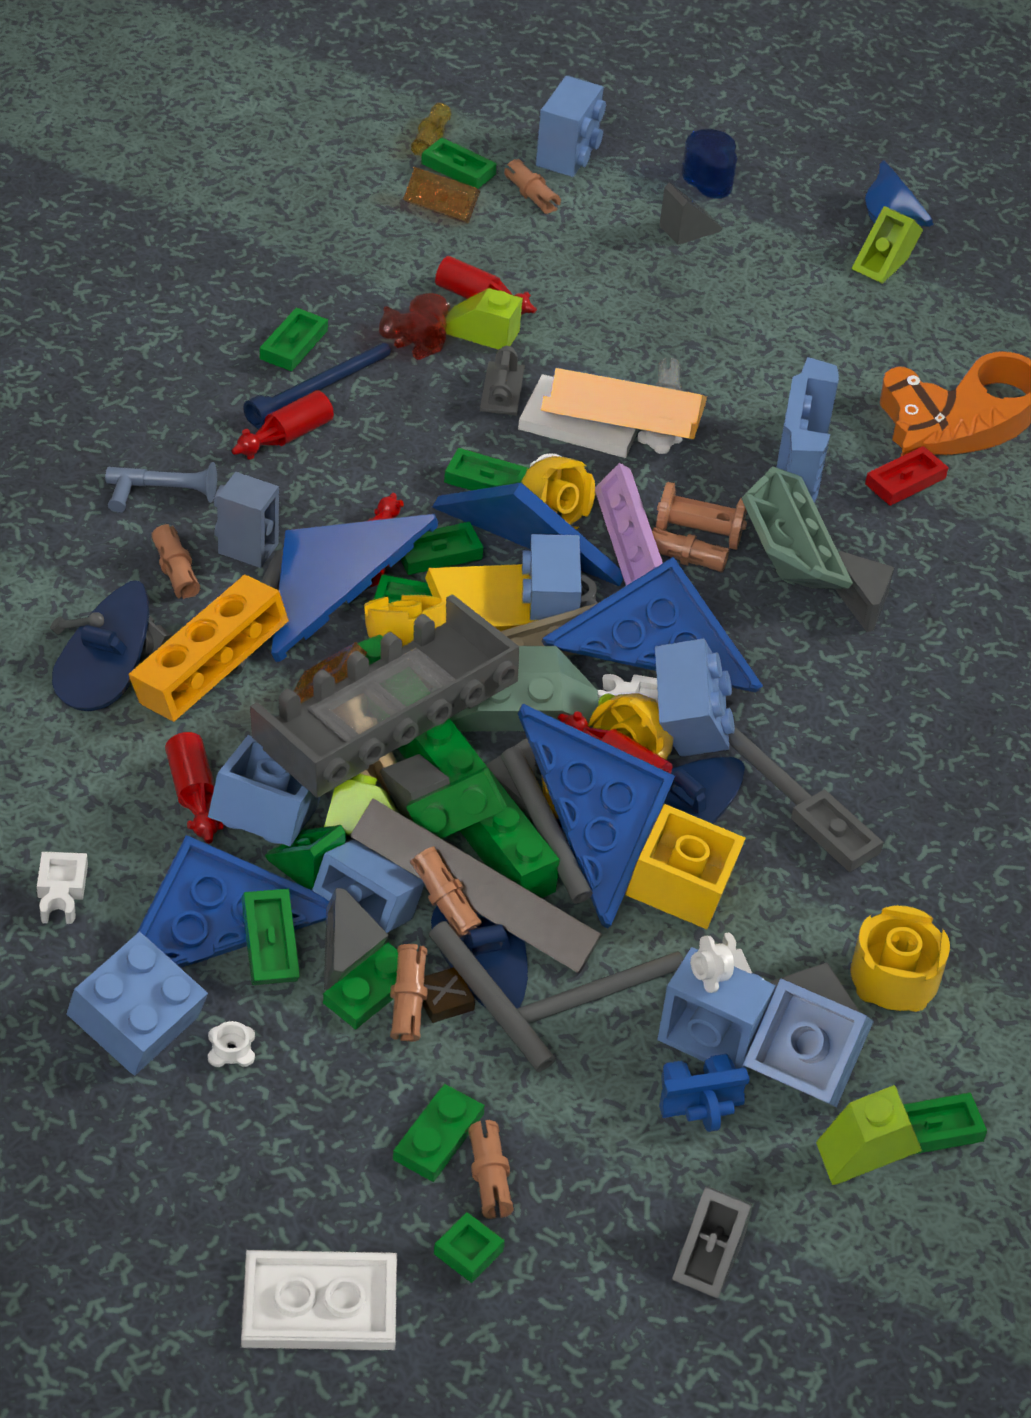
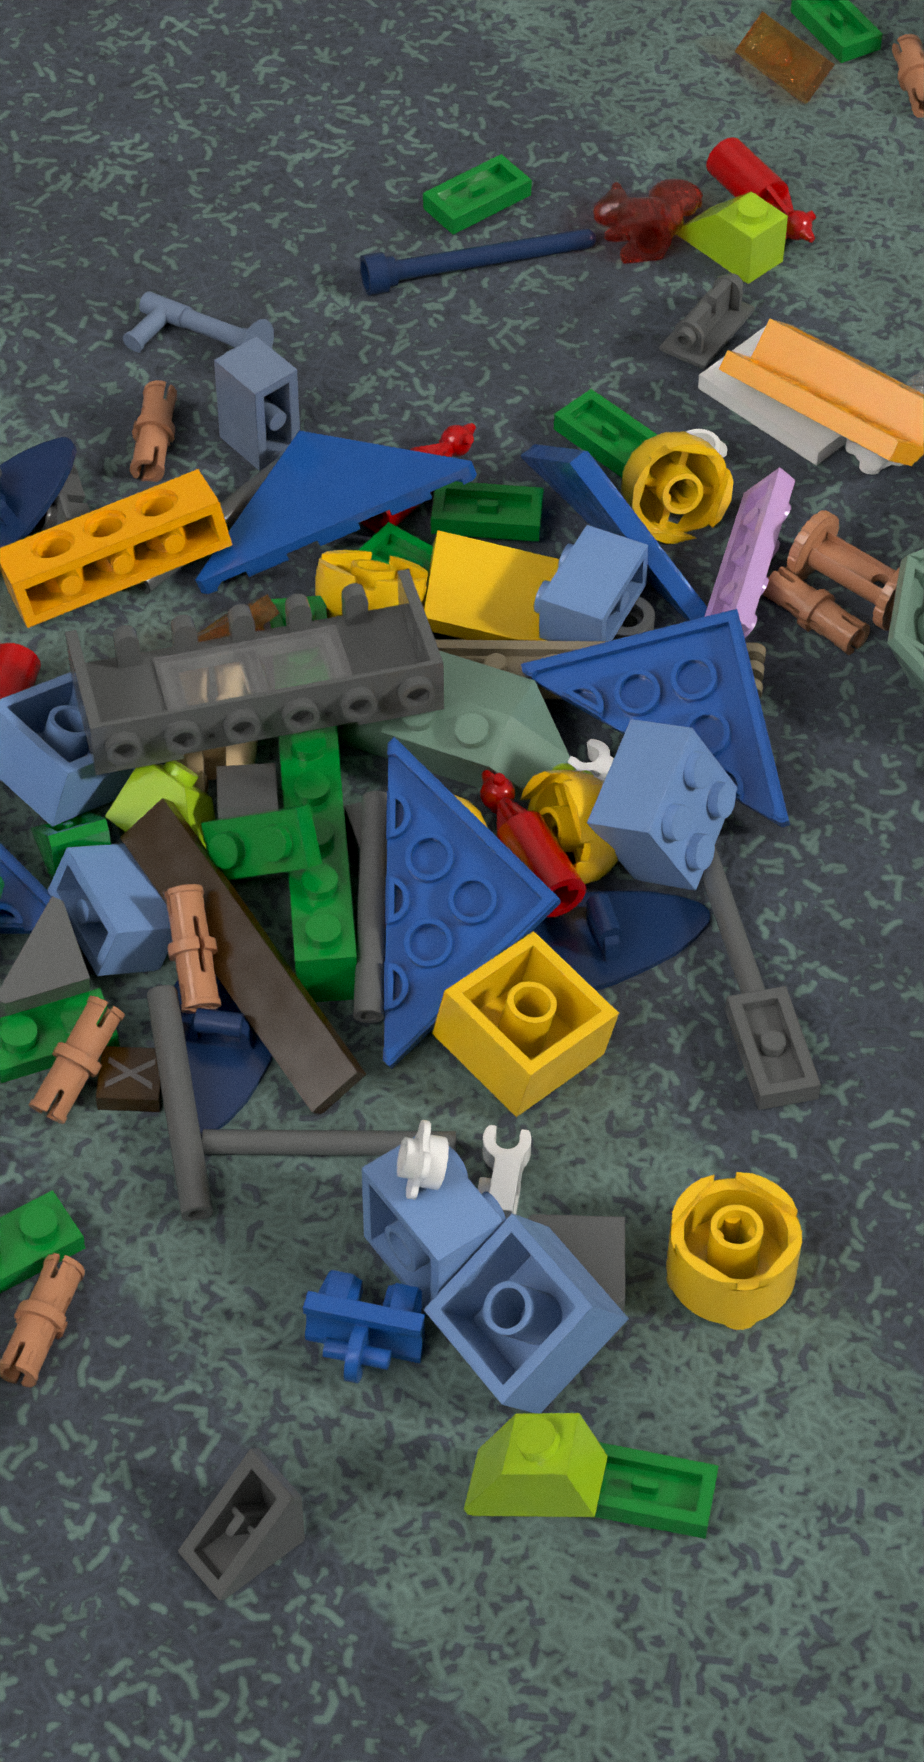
camera: 30 degrees right, 5 degrees up
(287, 424) = (396, 299): red wheel -> none

